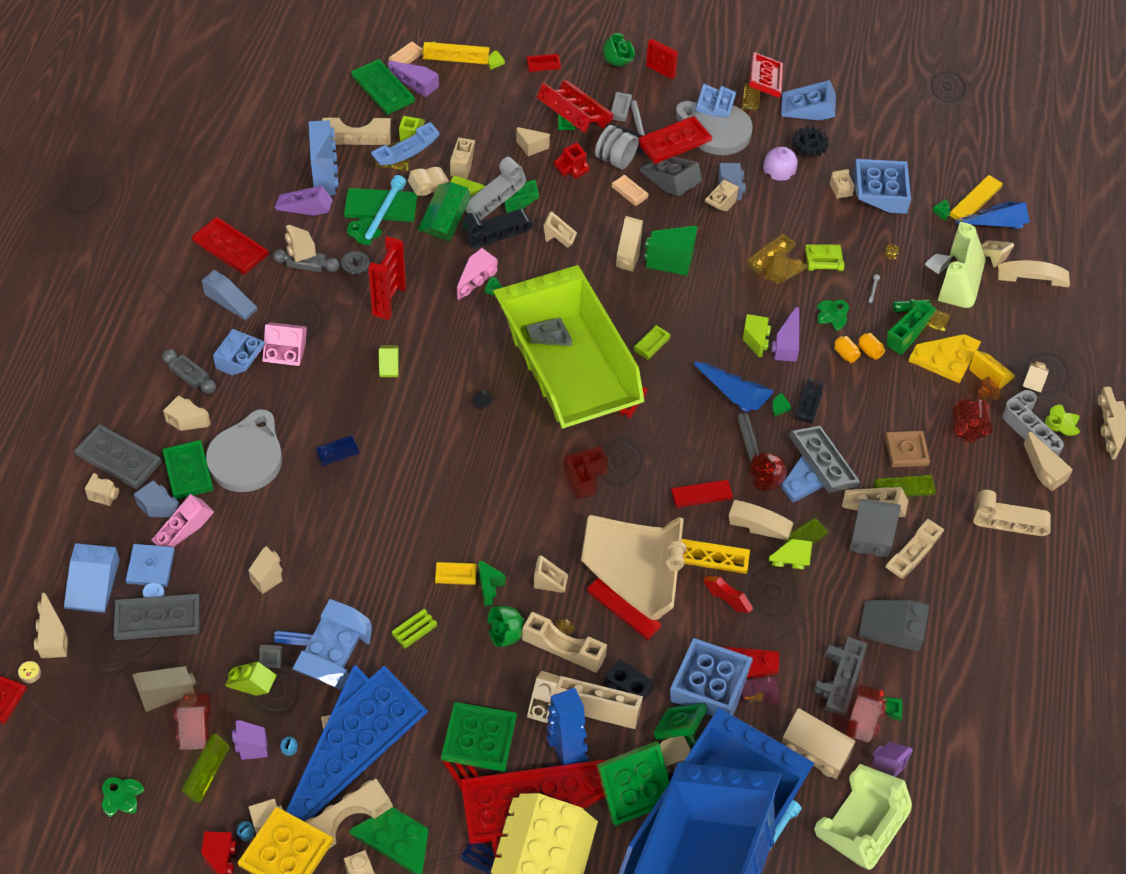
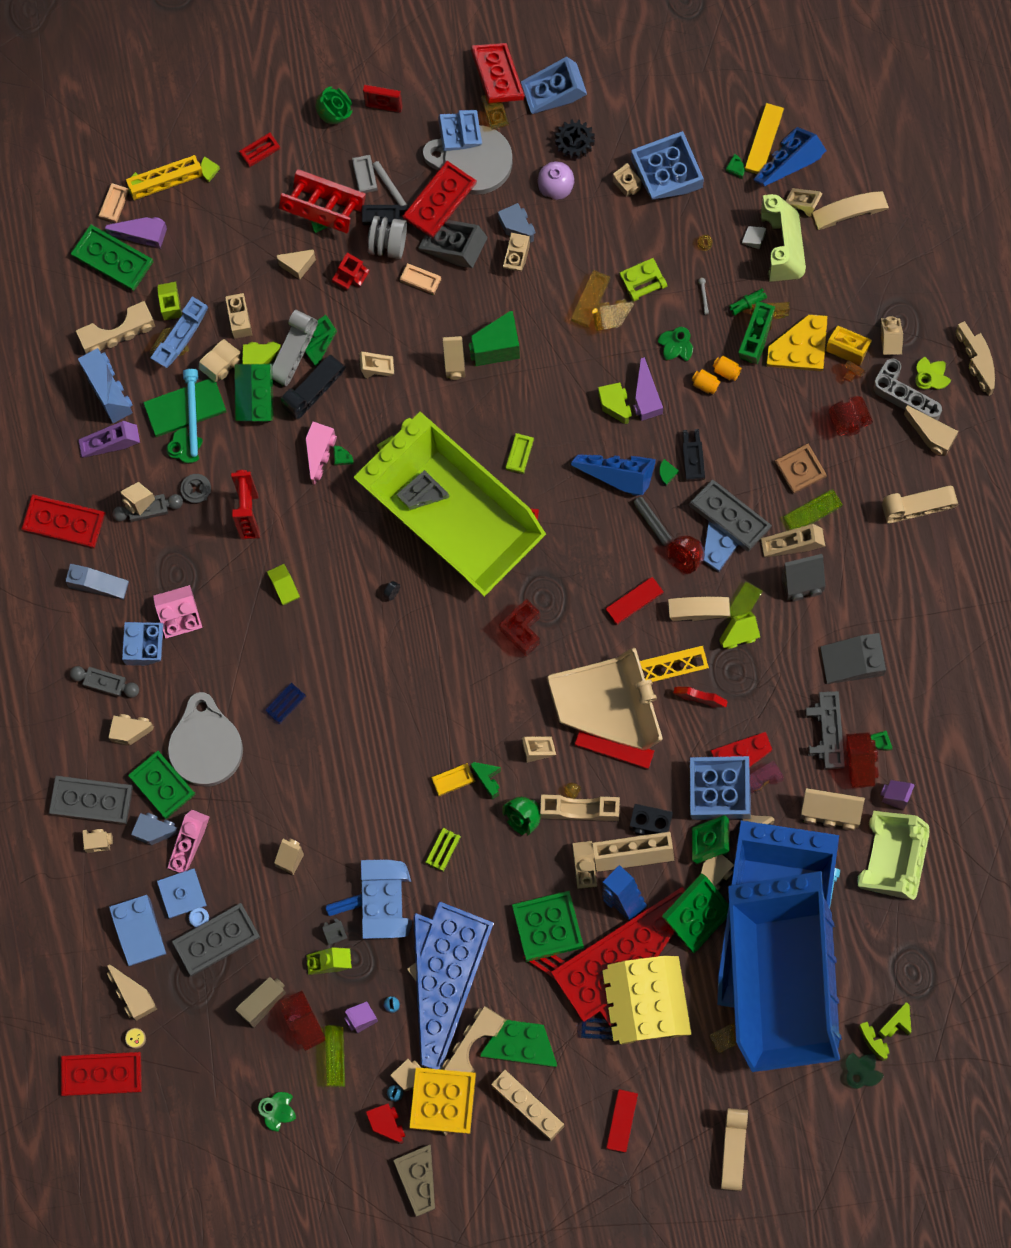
camera: 15 degrees left, 20 degrees up
(916, 549) = (845, 576): tan slope -> none

